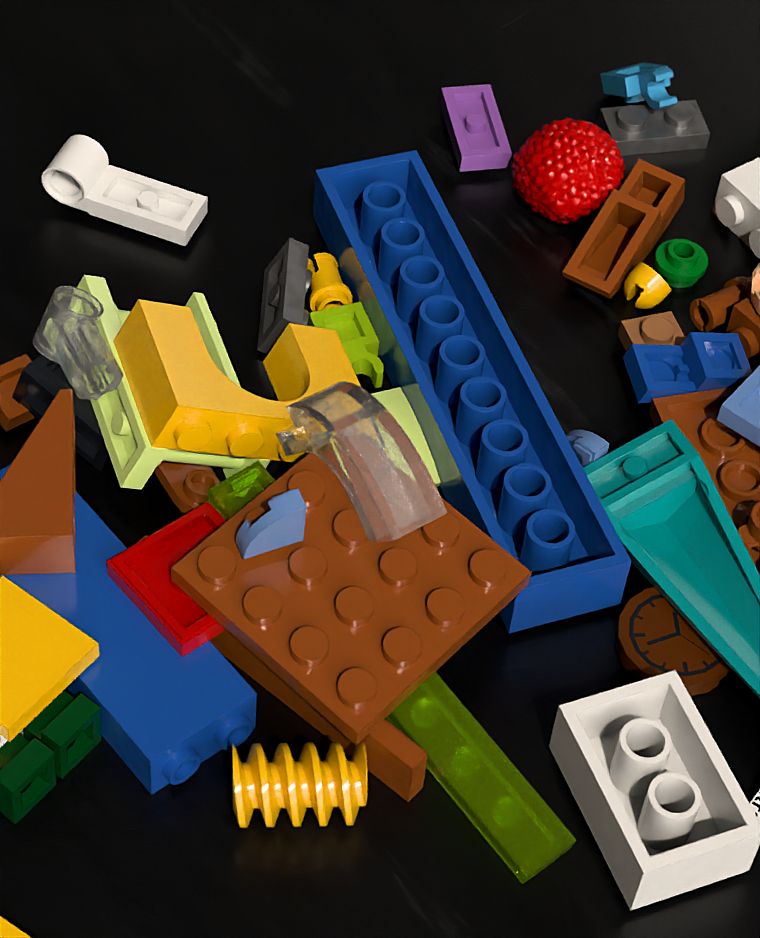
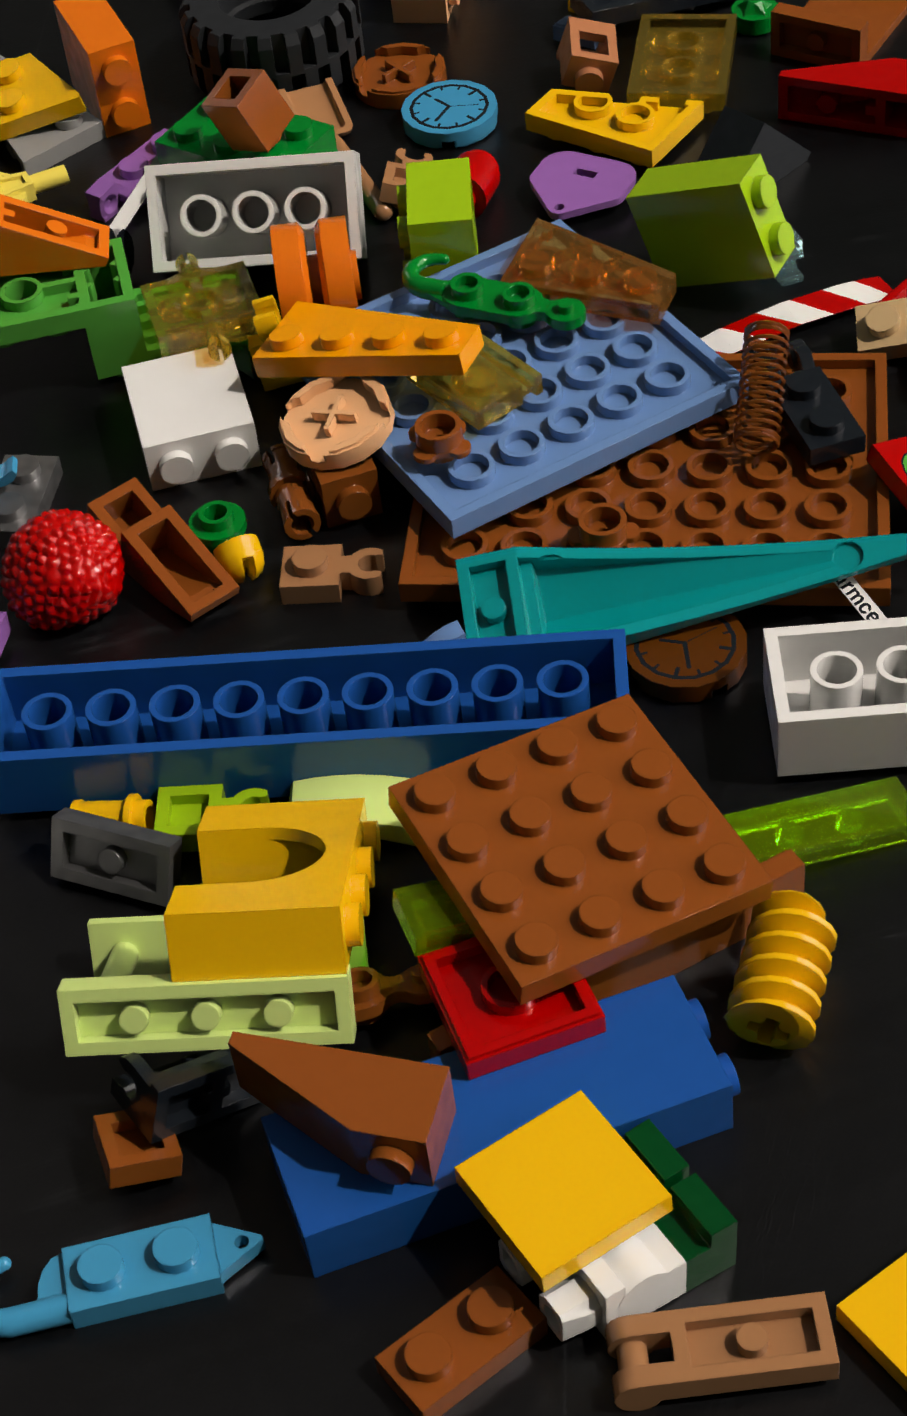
camera: 60 degrees left, 5 degrees down
(73, 340) = (144, 1020): clear piece -> none
(276, 528) = (525, 863): medium blue tile -> none
(368, 457) = (465, 752): clear arch -> none
(696, 365) = (373, 547): blue slope -> none

